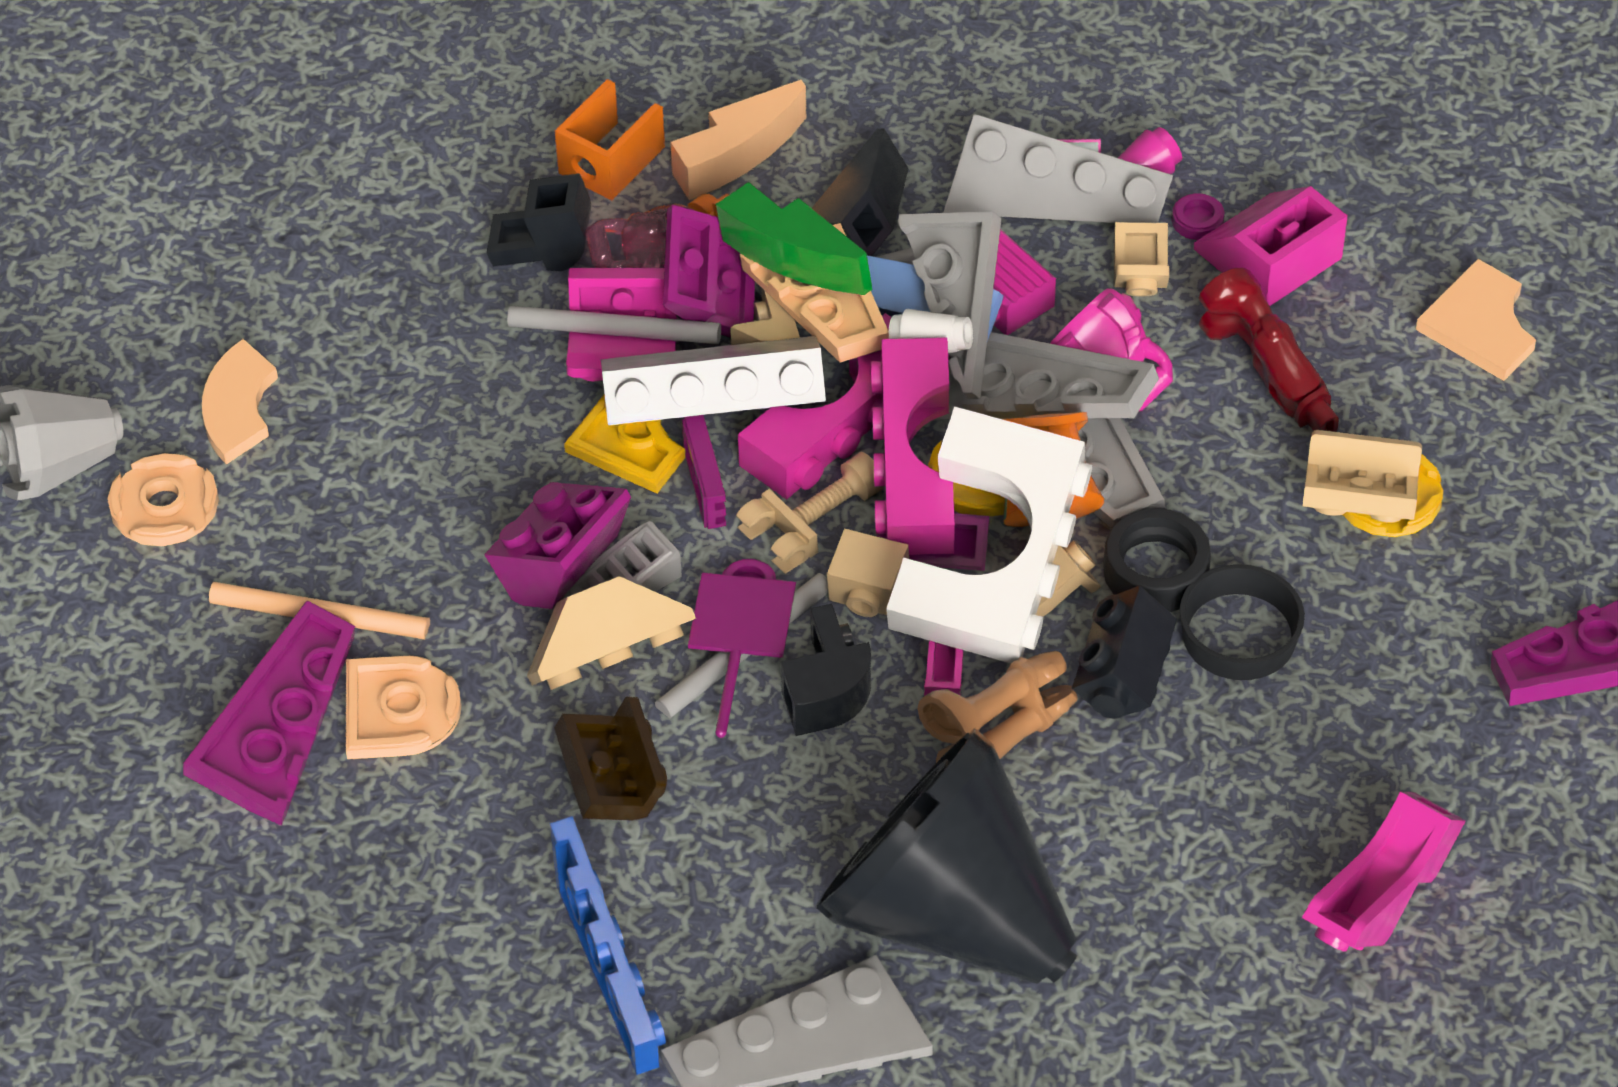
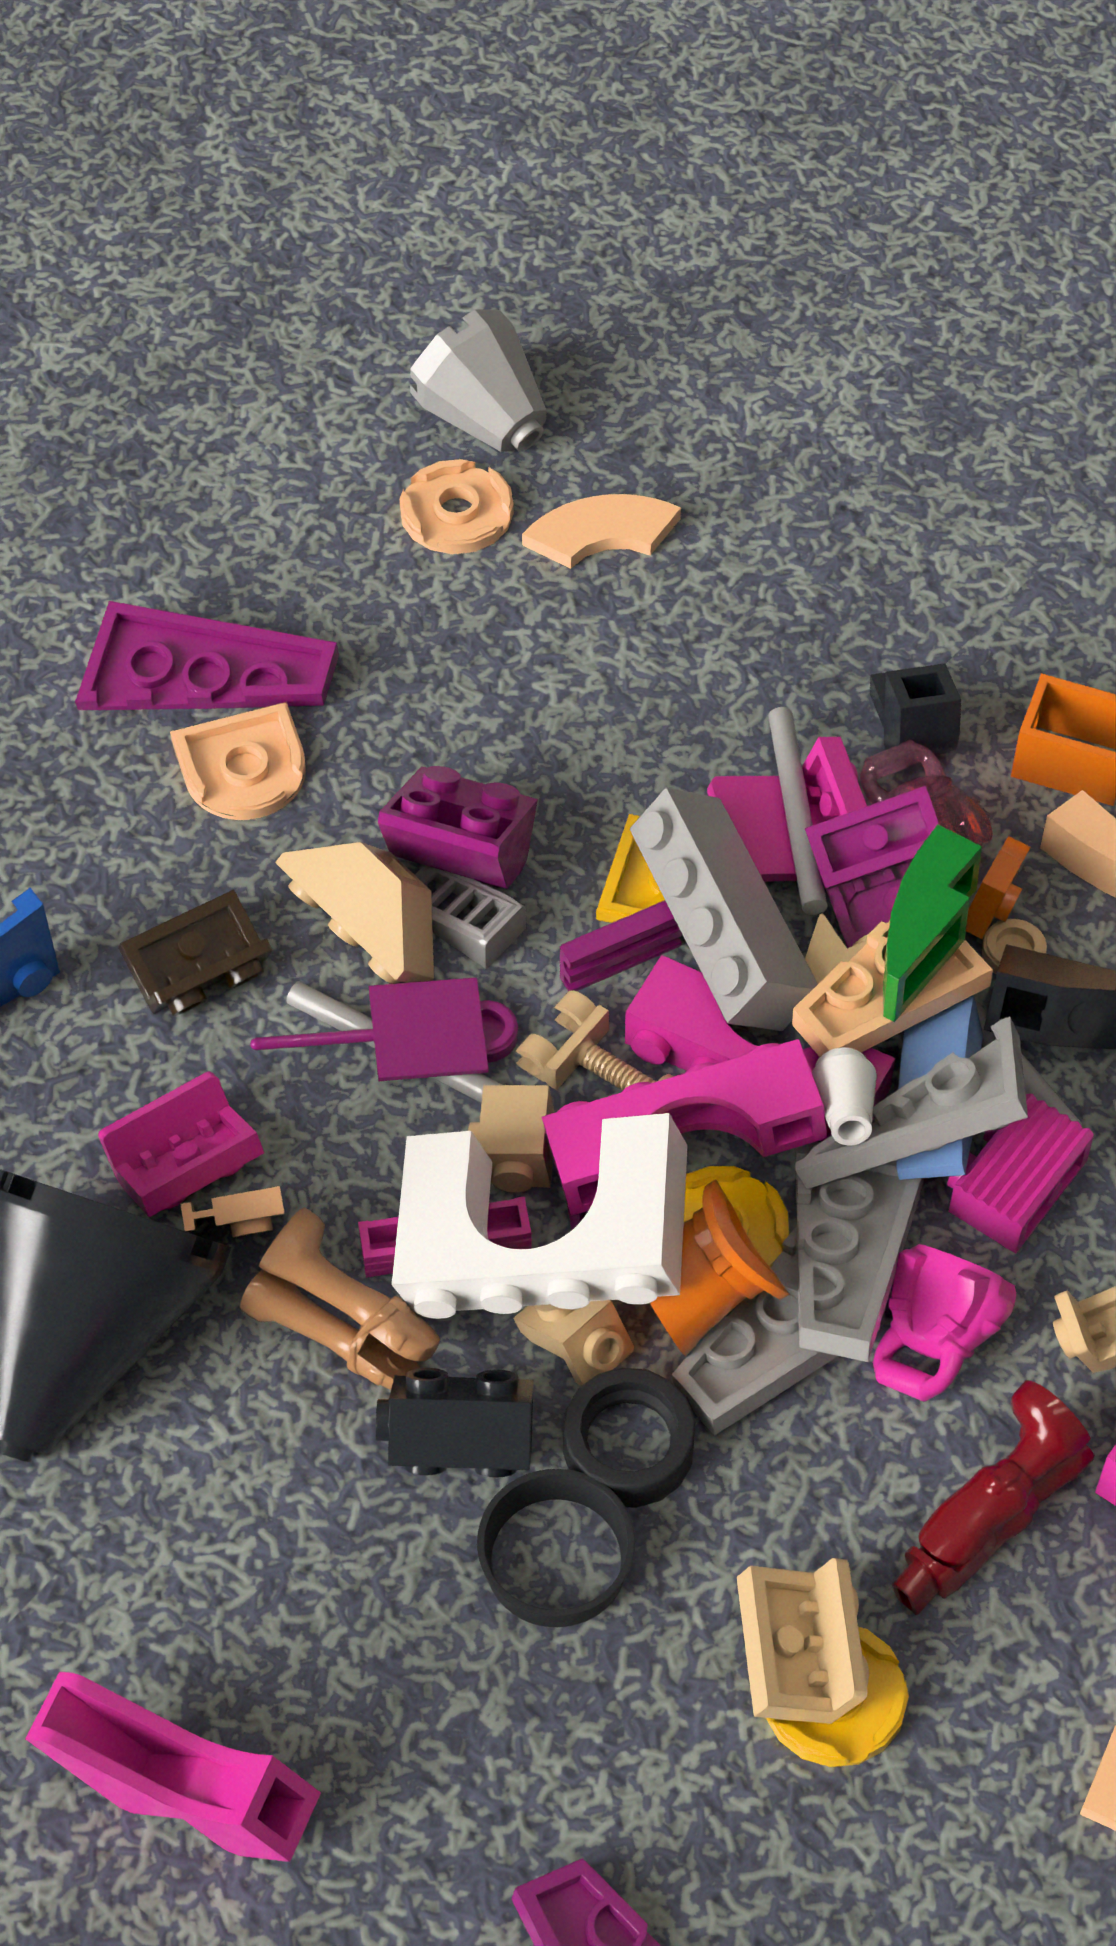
camera: 75 degrees right, 5 degrees up
(289, 605) = (350, 668): light nougat bar -> none
(808, 804) = (178, 1144): none -> dark pink bracket
(827, 685) = (360, 1140): black brick -> none
(895, 760) = (244, 1212): none -> light nougat plate

